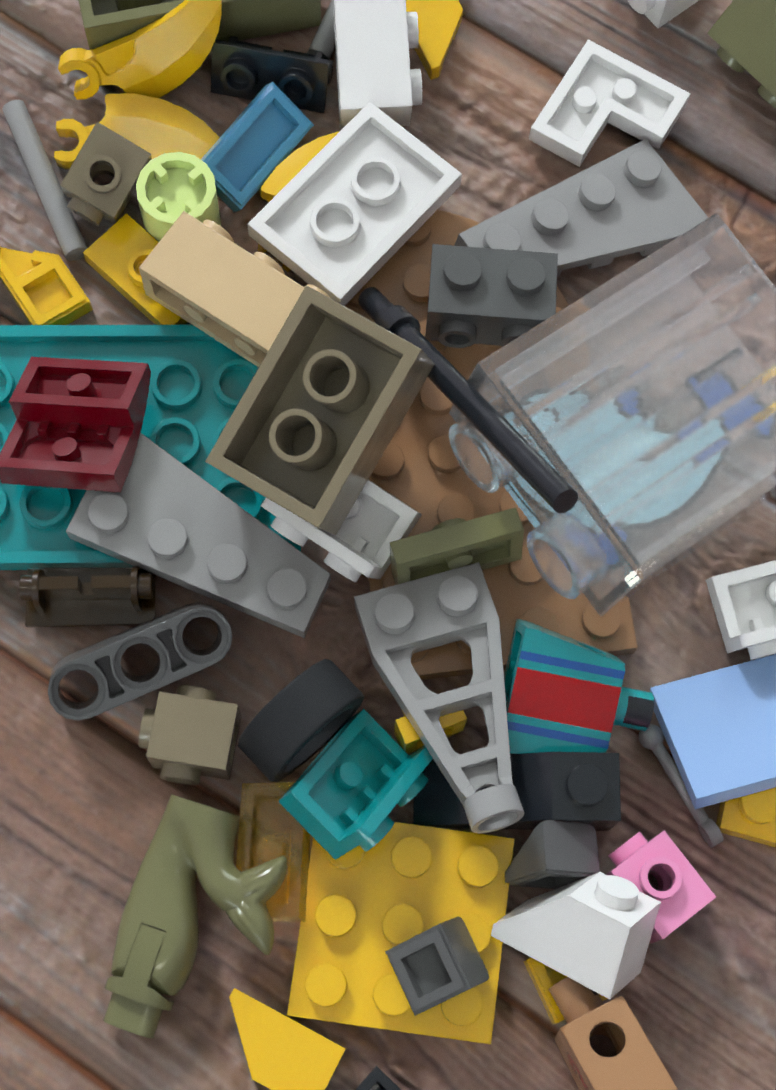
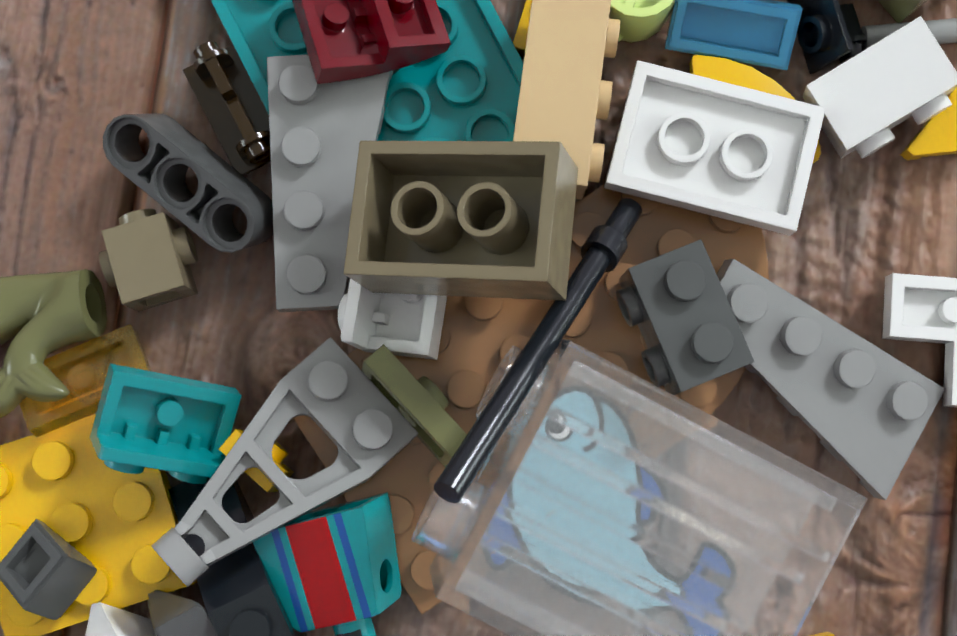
camera: 70 degrees right, 10 degrees up
(300, 720) = (197, 346): black tyre -> none

